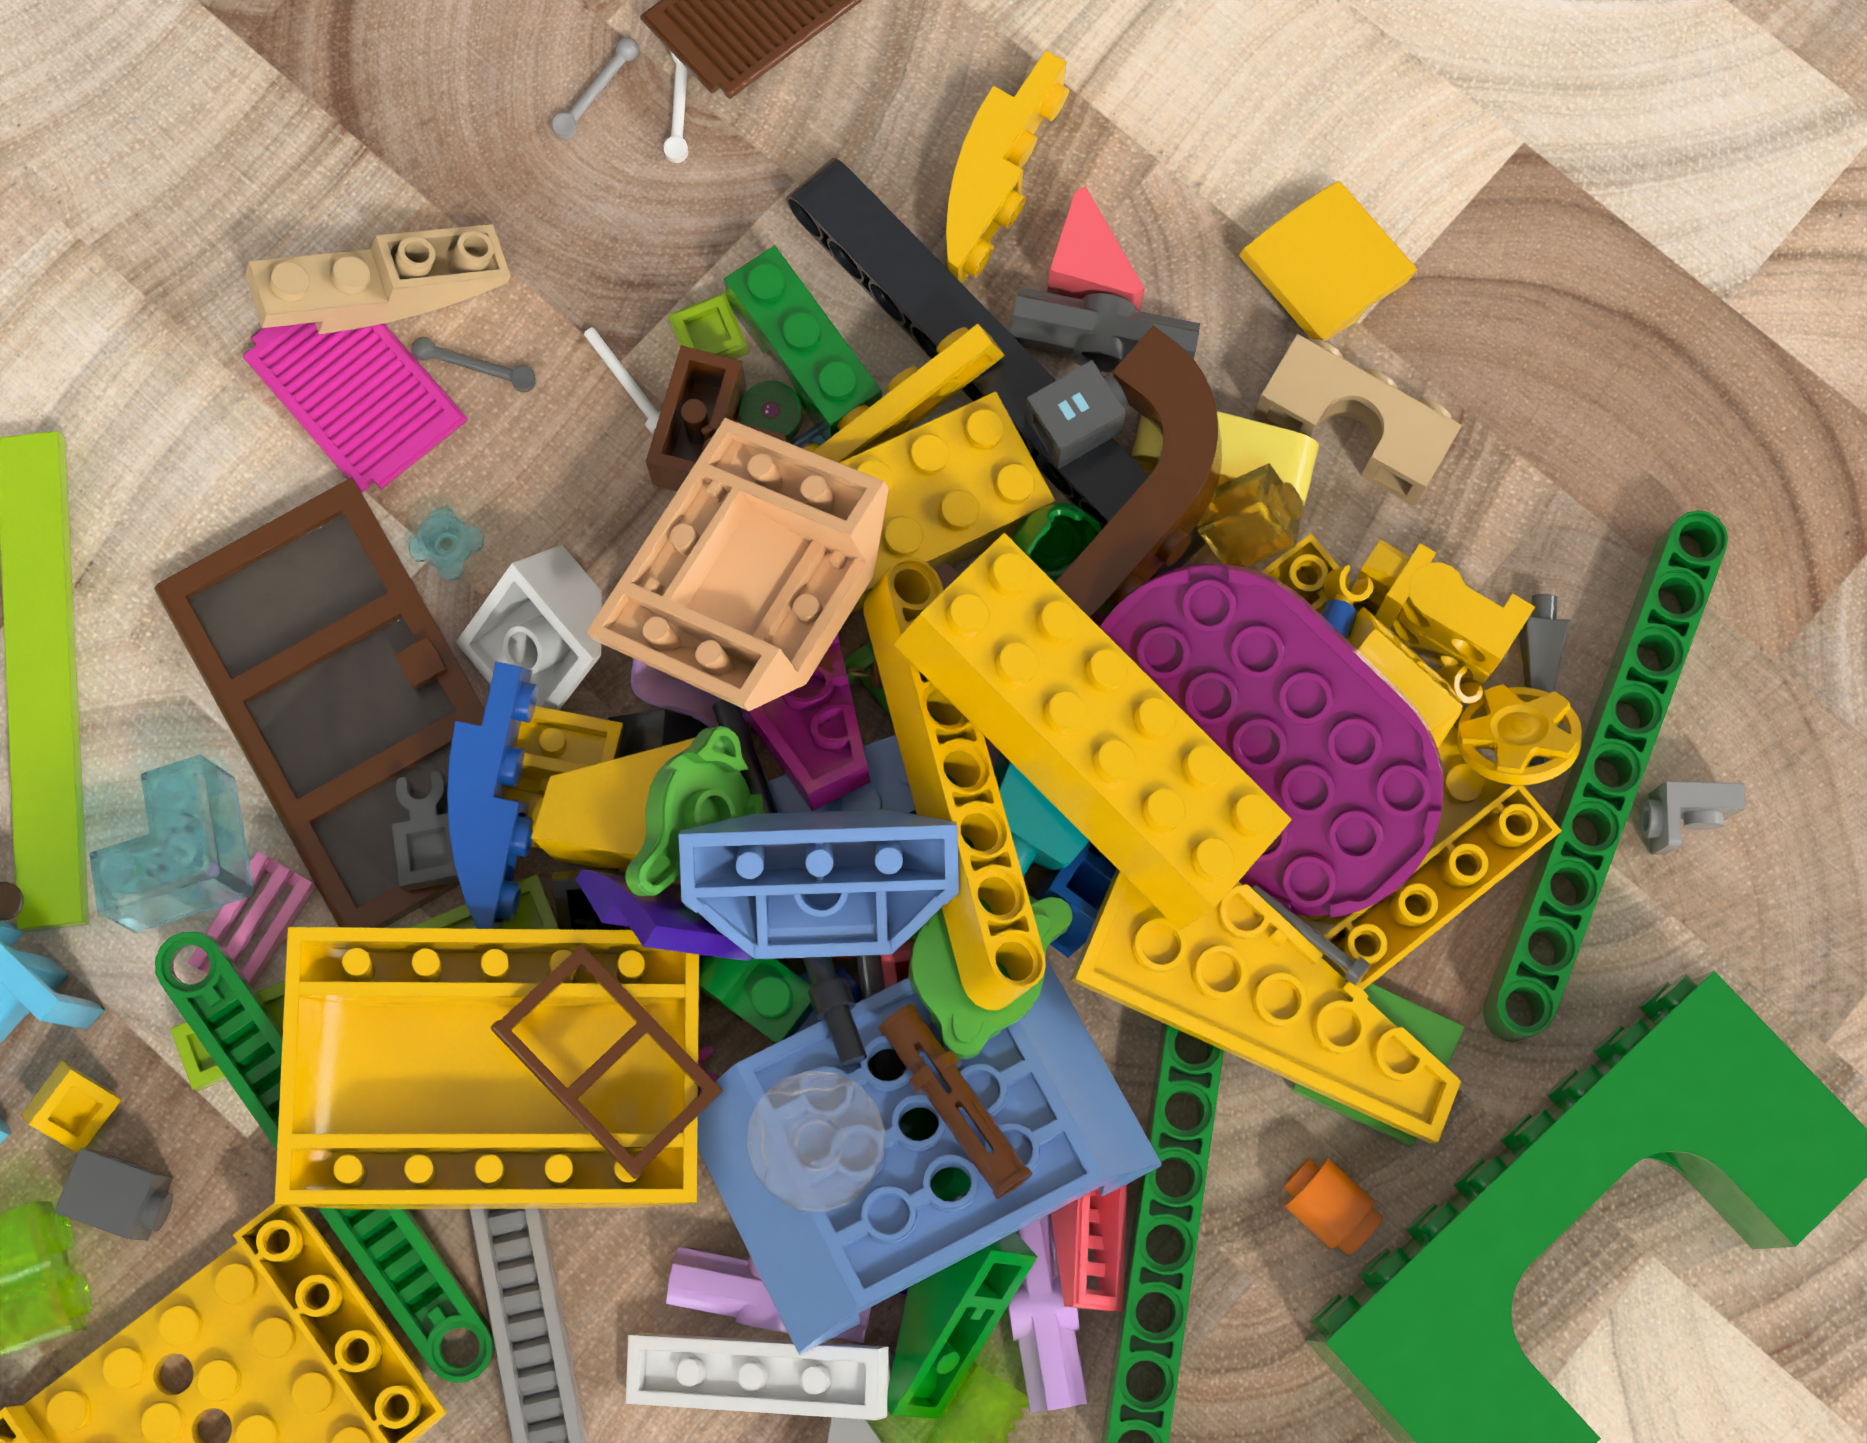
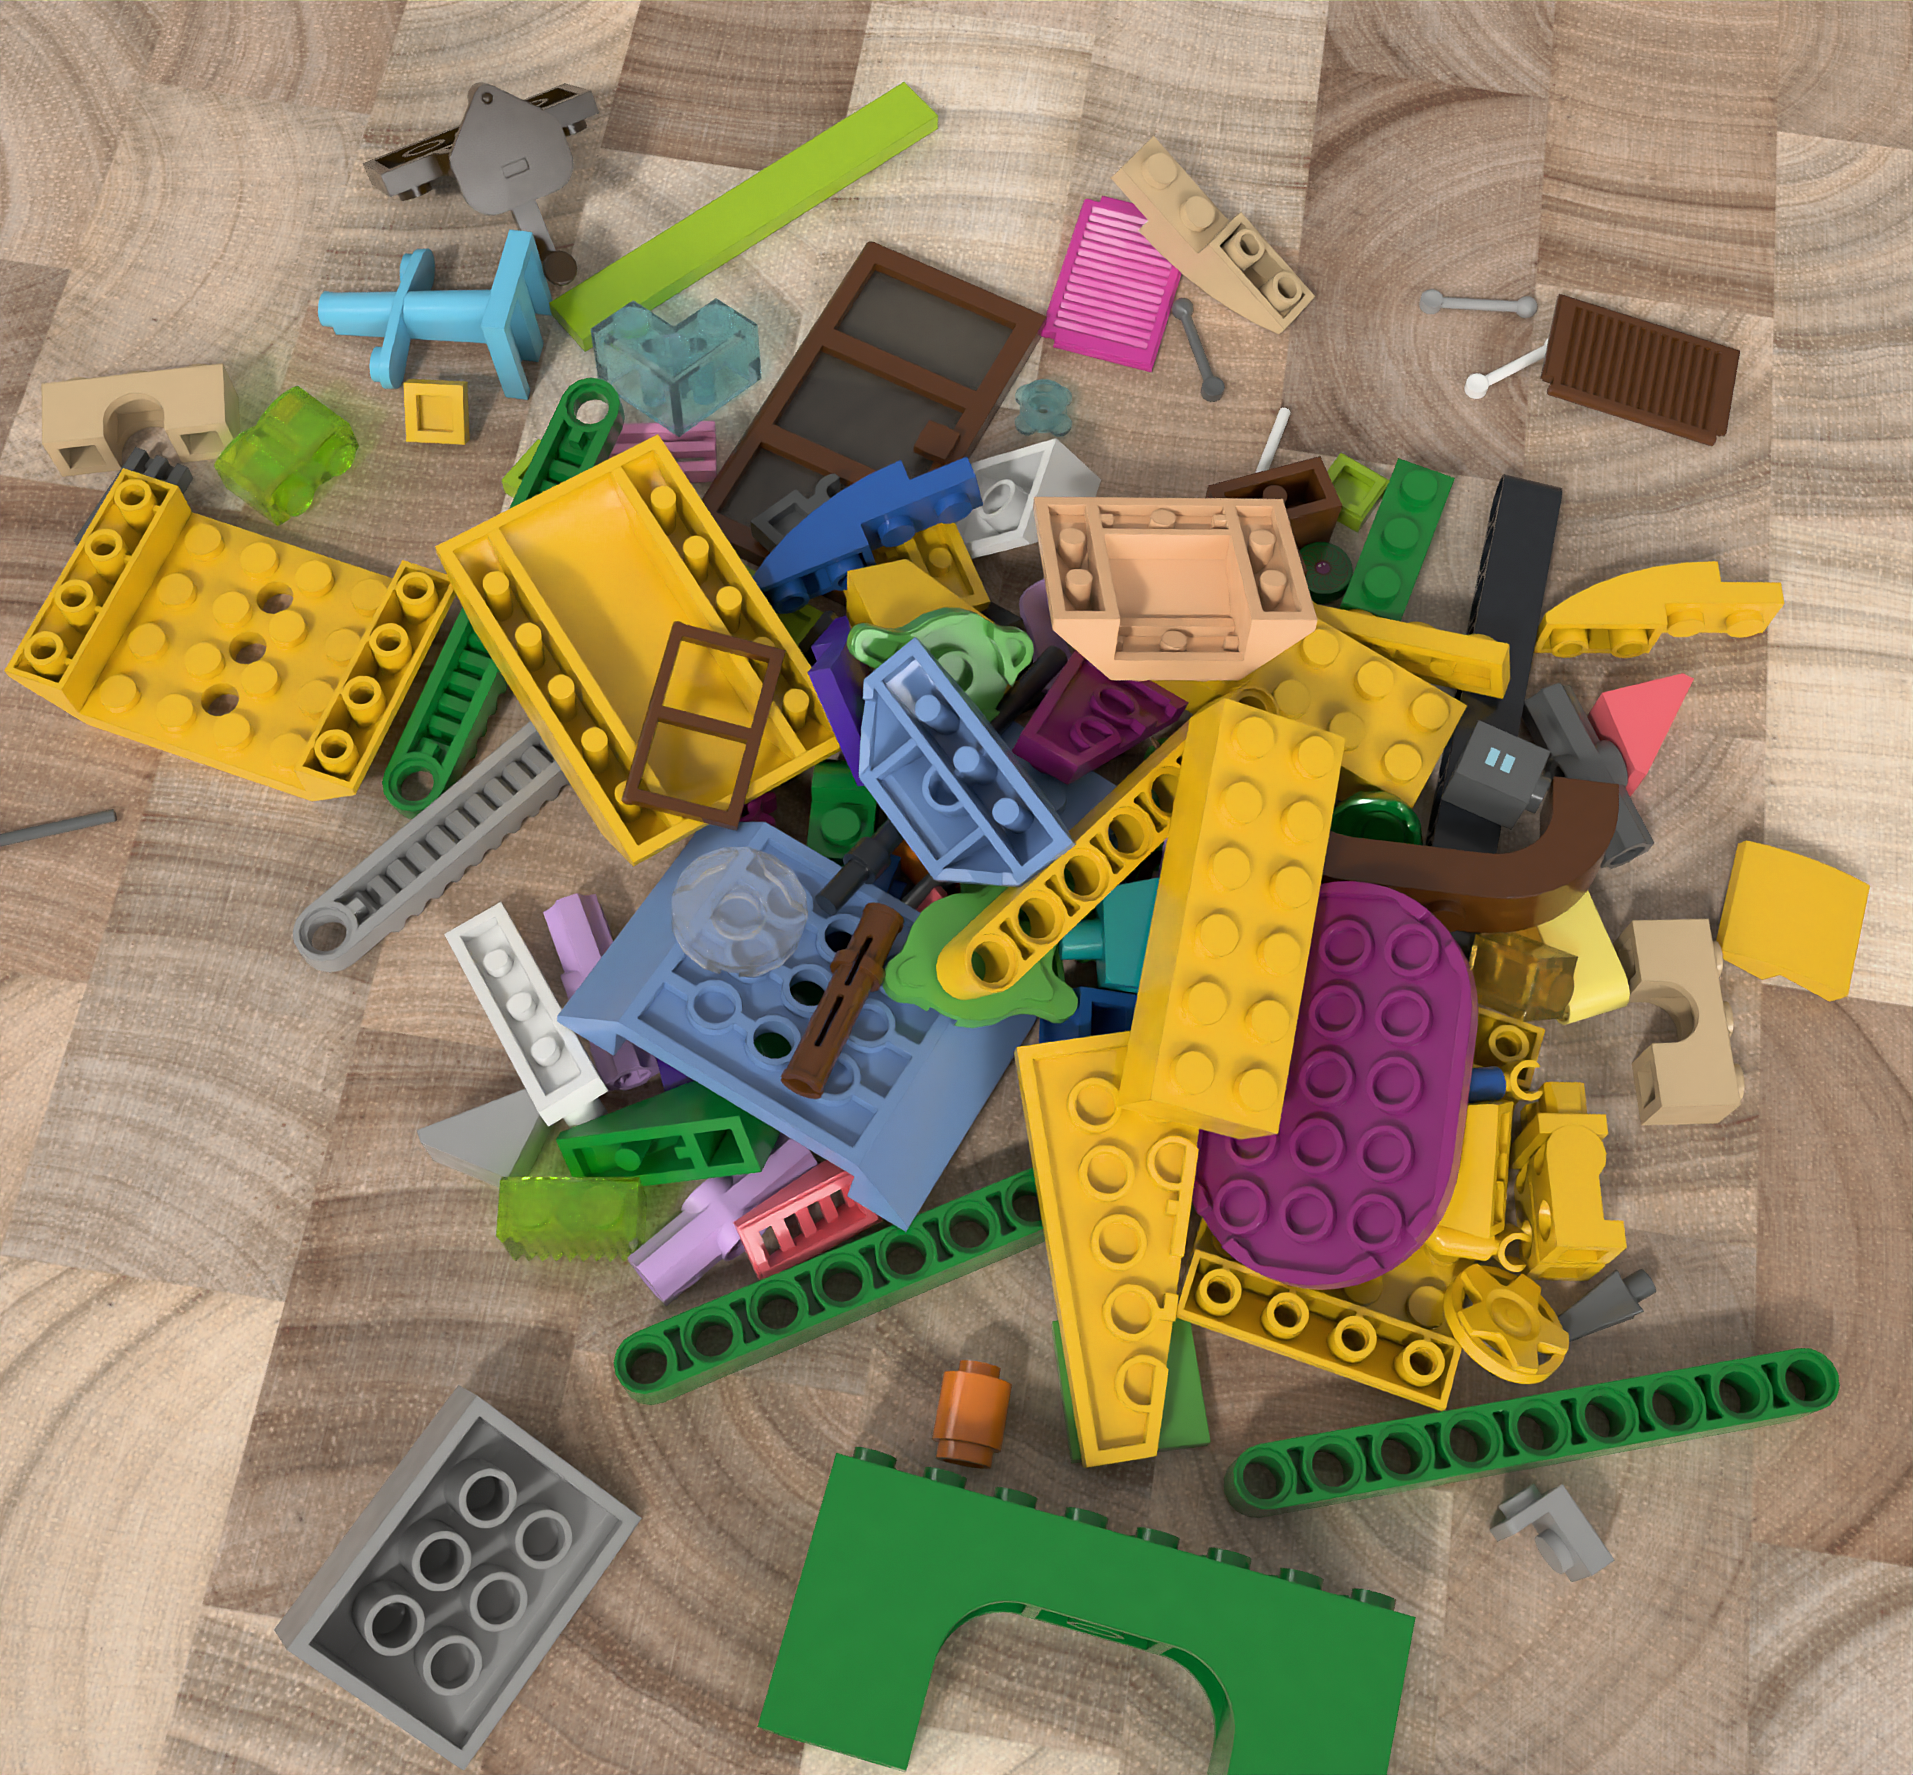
camera: 55 degrees right, 10 degrees down
(115, 1195) = (388, 477): dark grey brick -> none
(1355, 969) = (1188, 1290): dark grey piece -> none

